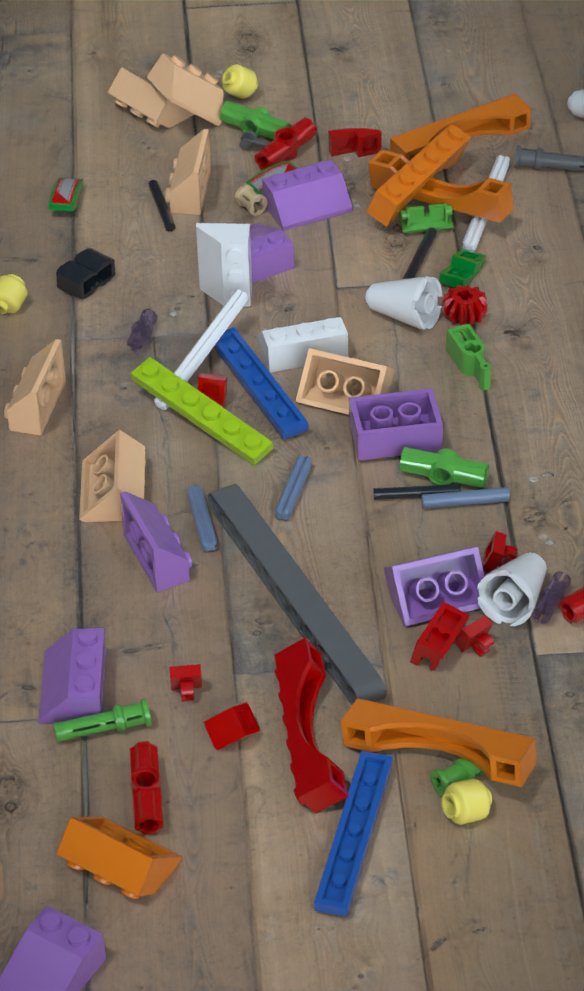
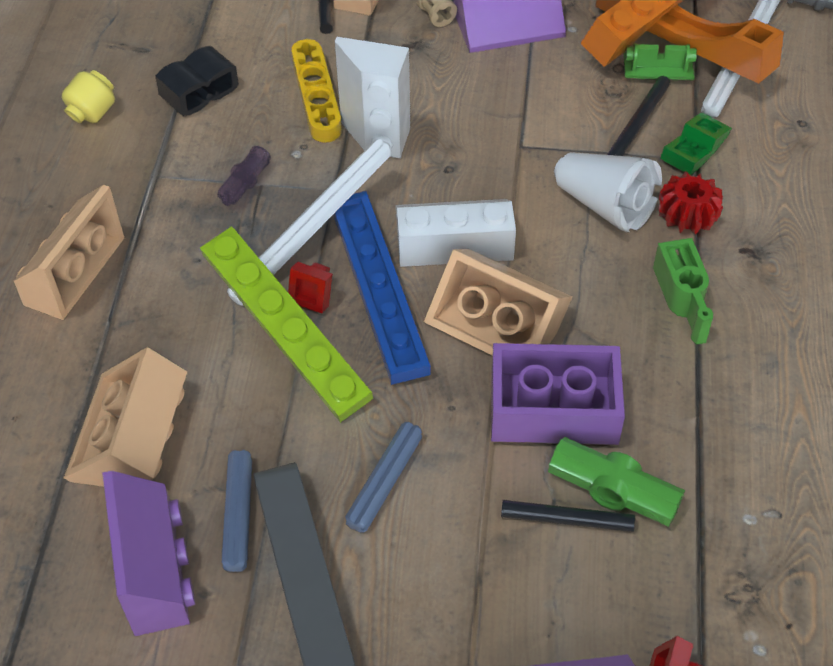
camera: 10 degrees right, 10 degrees up
(170, 270) = (316, 89): none -> yellow beam
(270, 252) = (437, 80): medium lavender slope -> none
(463, 498) = (639, 541): sand blue piece -> none

